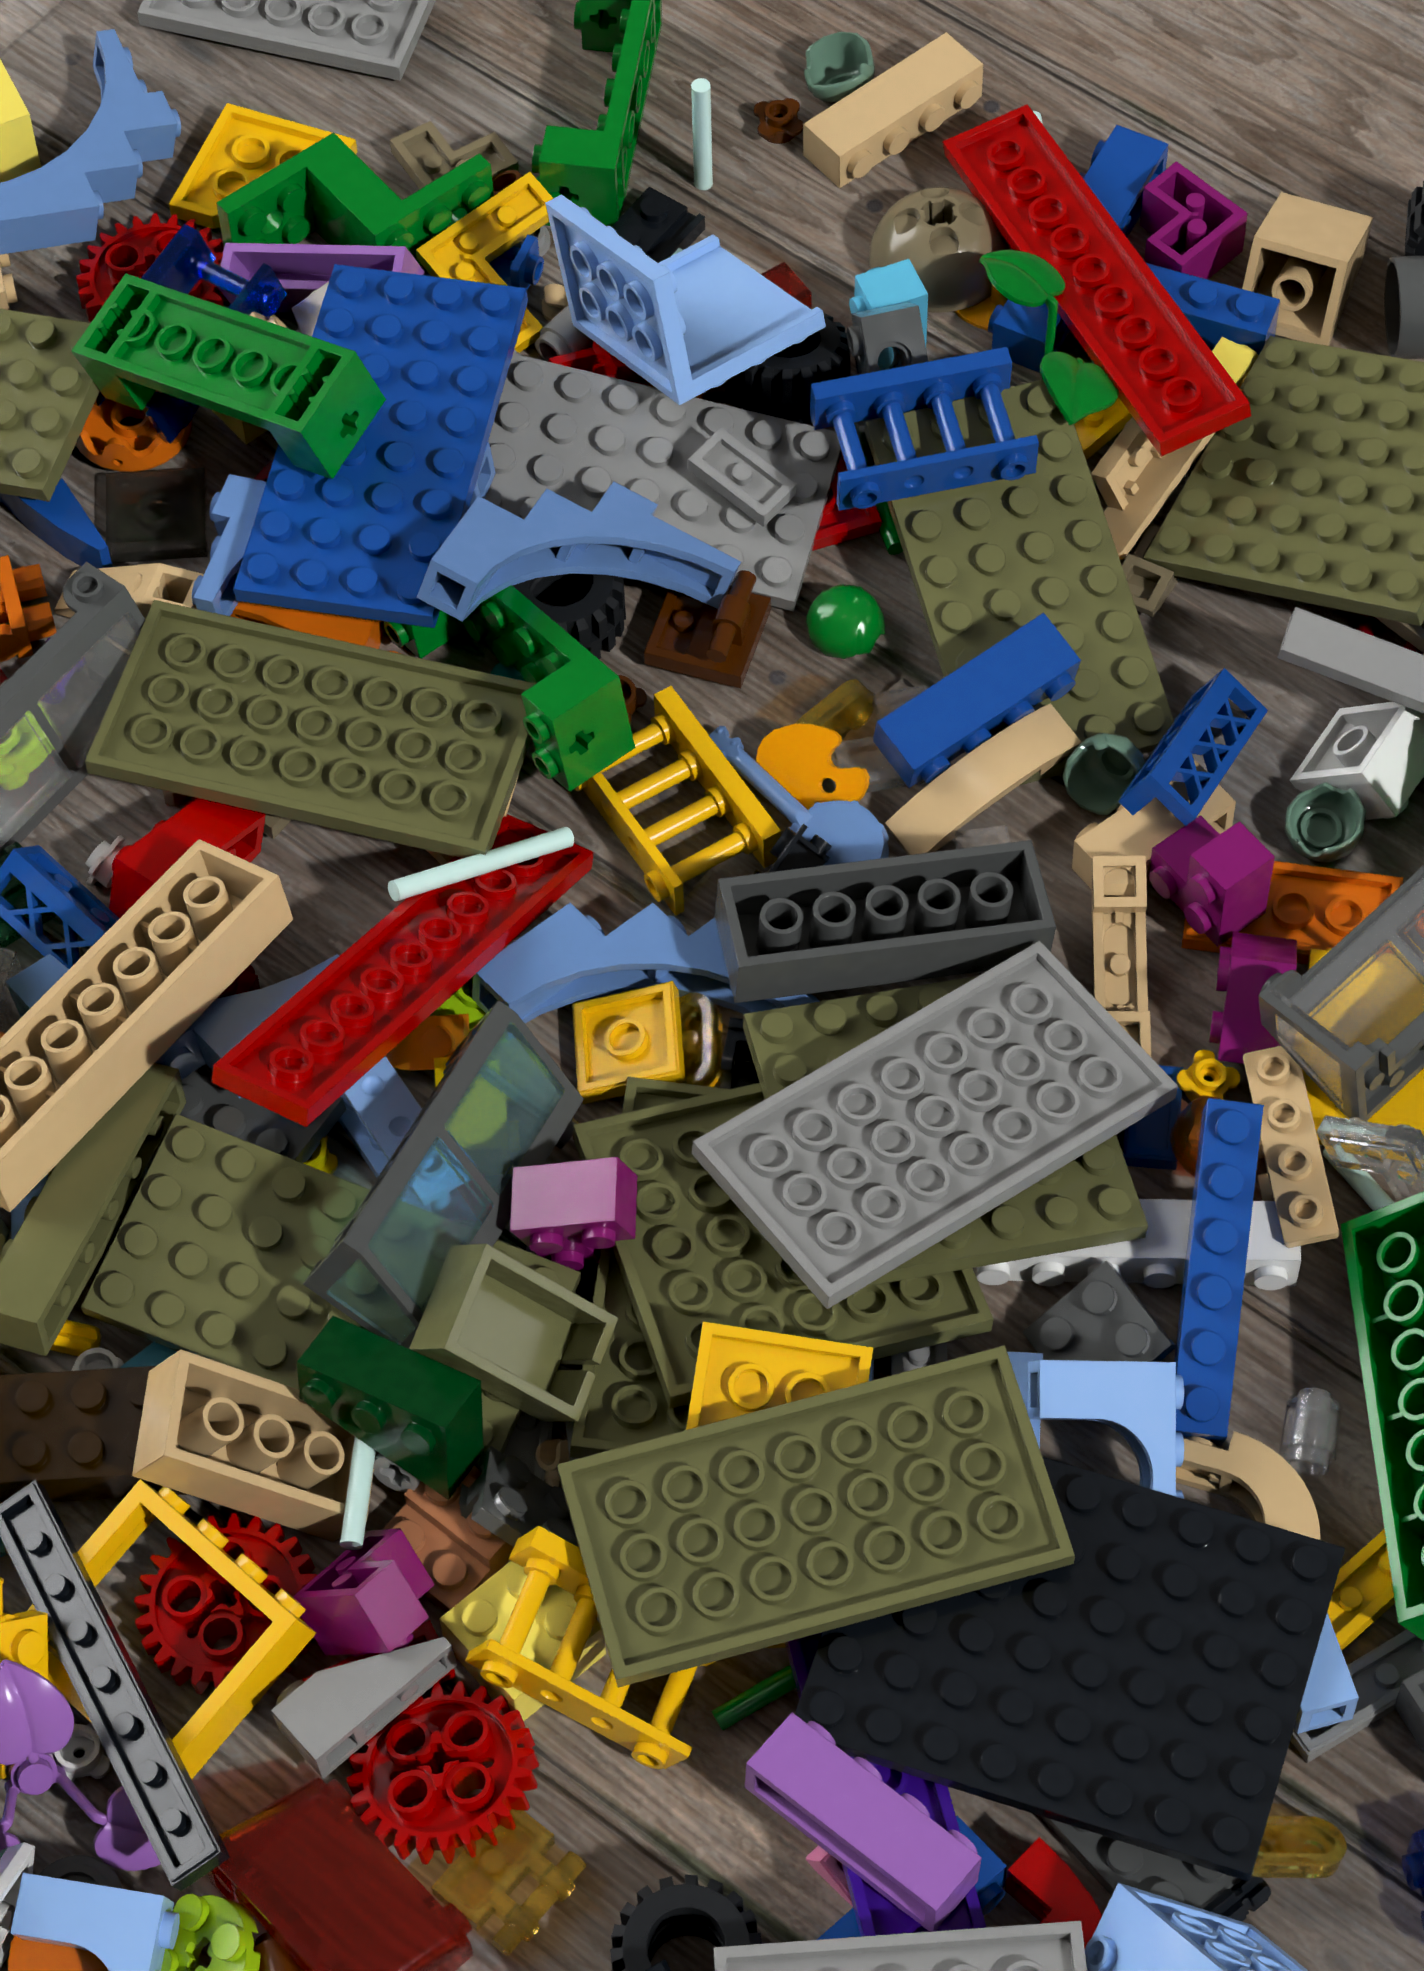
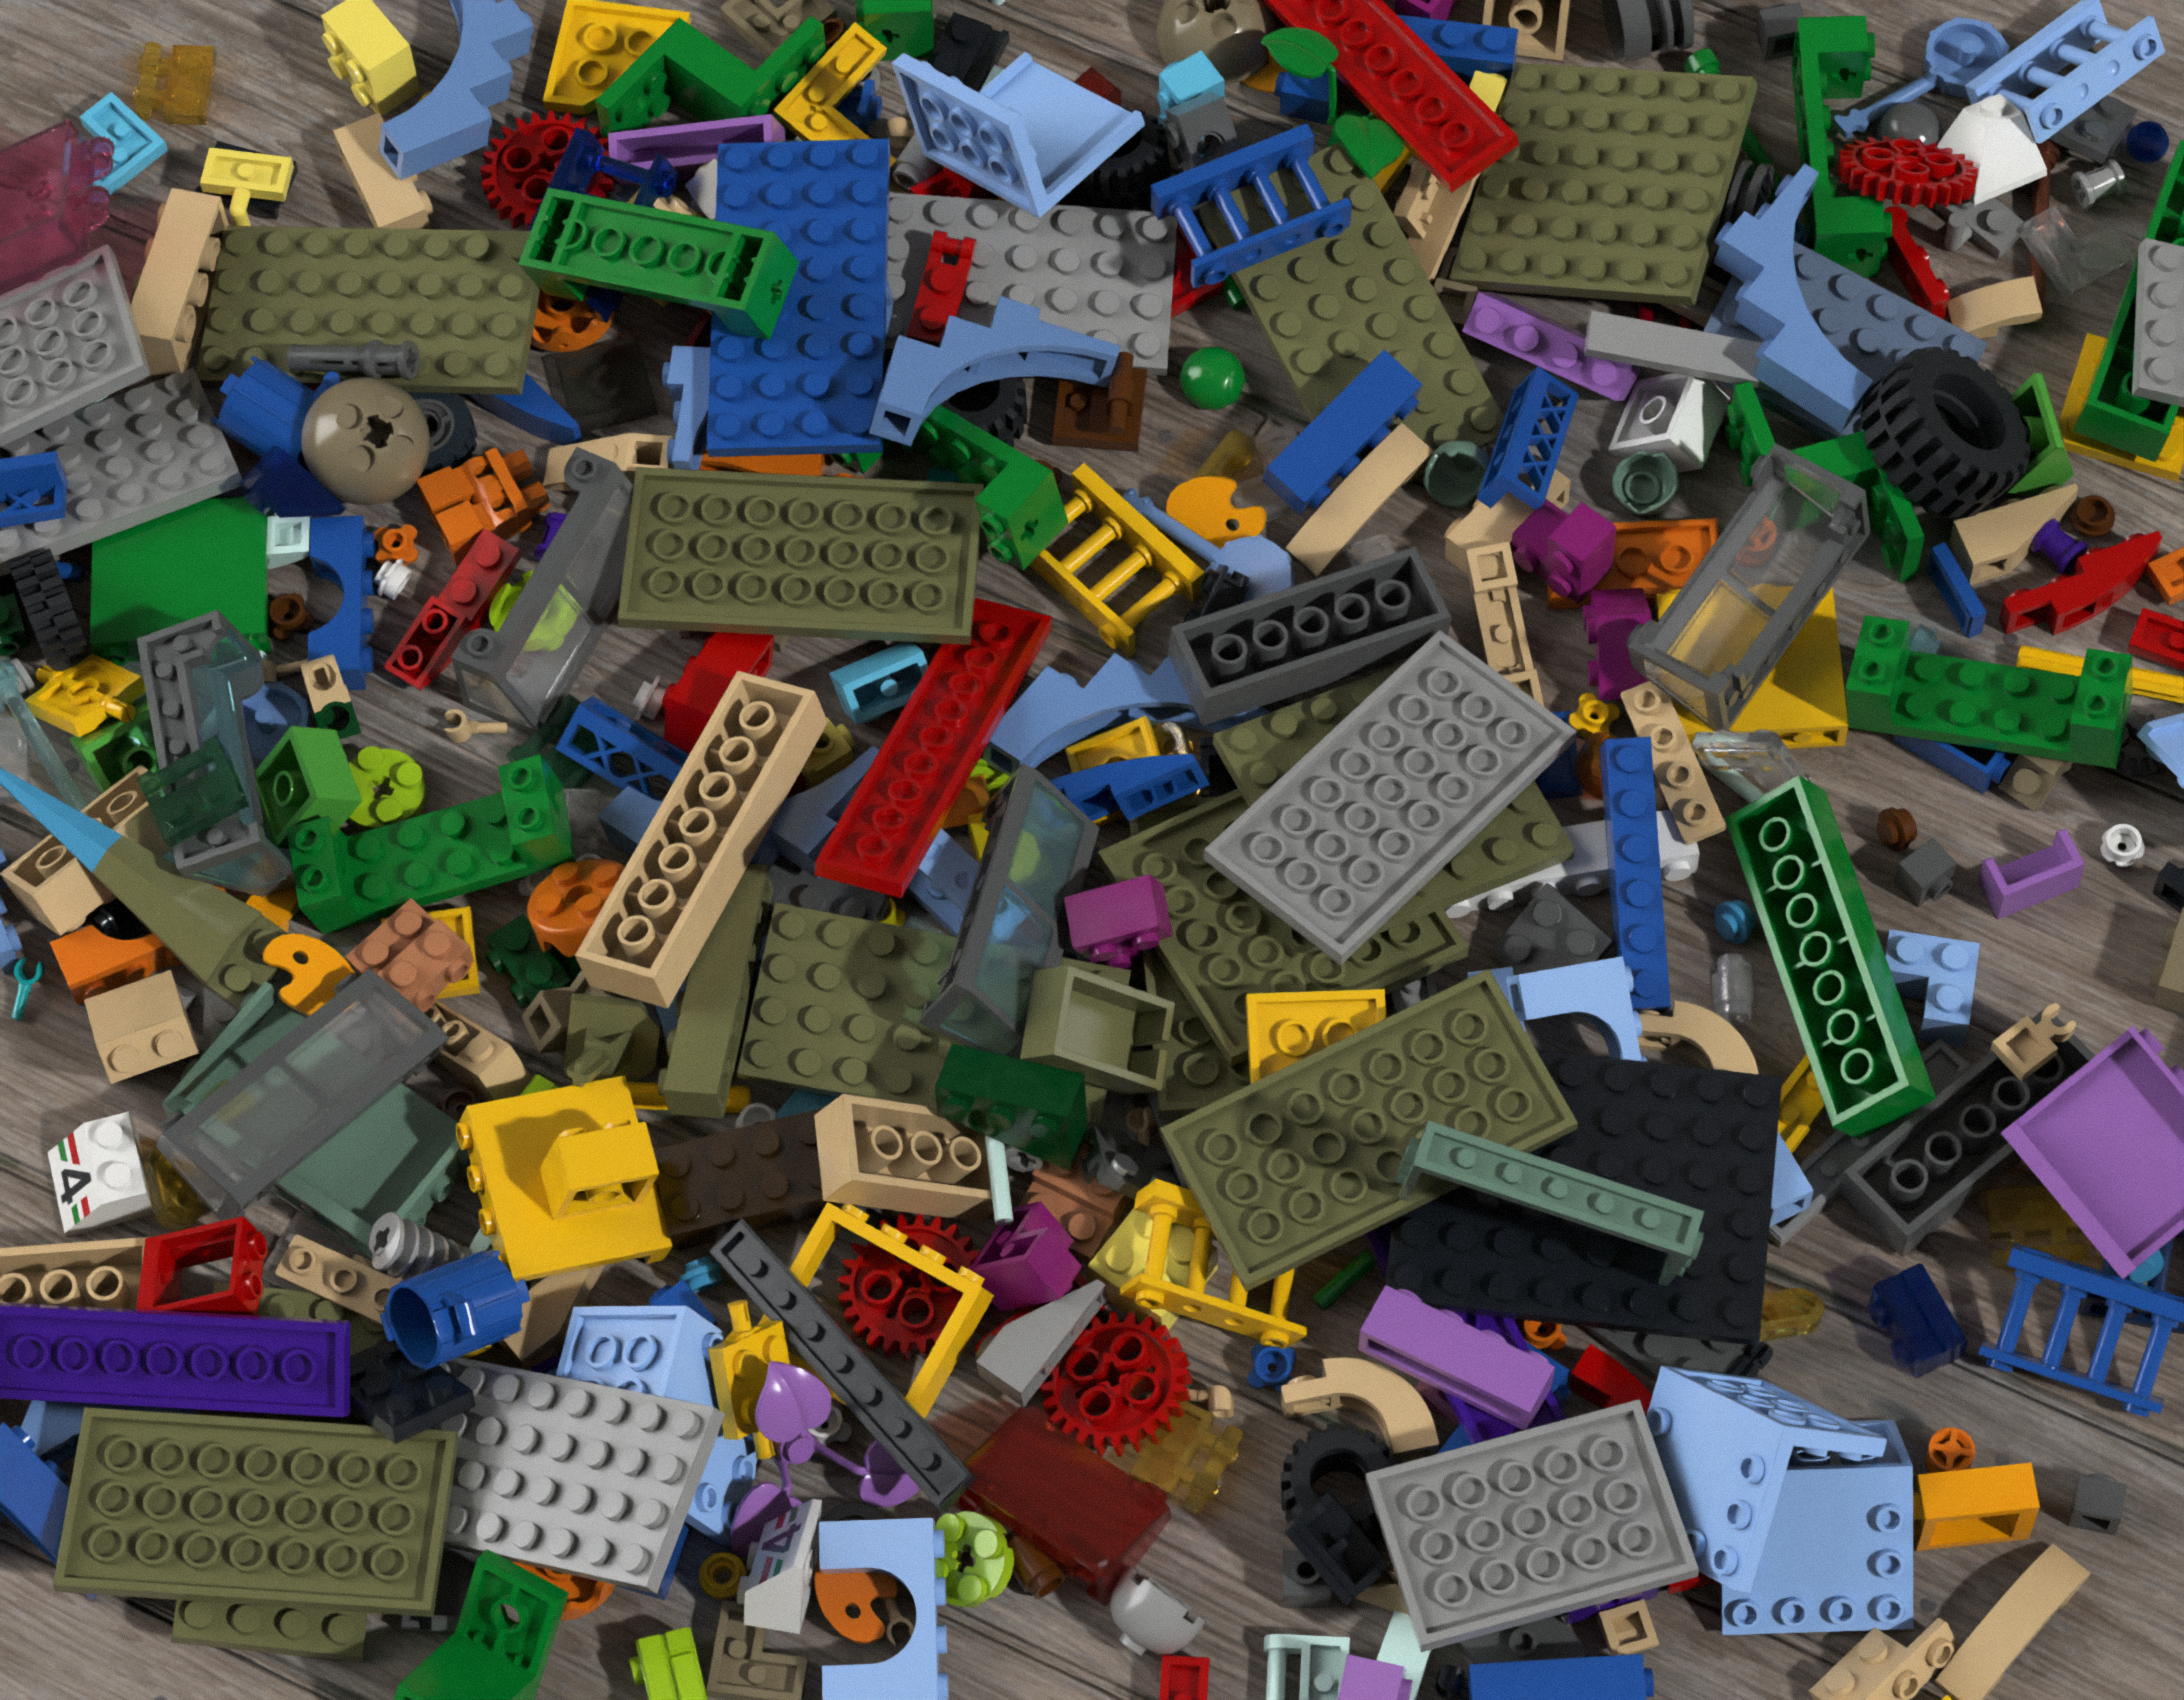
camera: 10 degrees left, 5 degrees up
(290, 954) = (829, 760): none -> light yellow brick
(358, 890) = (879, 681): none -> medium azure brick
(480, 864) = (967, 646): light aqua bar -> none
(555, 461) = (941, 287): none -> red plate
(565, 1815) = (1218, 1399): none -> tan hand
(634, 1056) = (1132, 785): none -> blue slope
(639, 1773) = (1263, 1356): none -> blue plate
(742, 476) = (1102, 269): light grey plate -> none
(754, 1843) = (1372, 1392): none -> tan arch
(996, 1821) = (1552, 1338): none -> orange plate
(1017, 1634) = (1555, 1191): none -> sand green panel
(1244, 650) = (1547, 345): none -> medium lavender brick
(1329, 1350) = (1734, 921): none -> dark azure plate

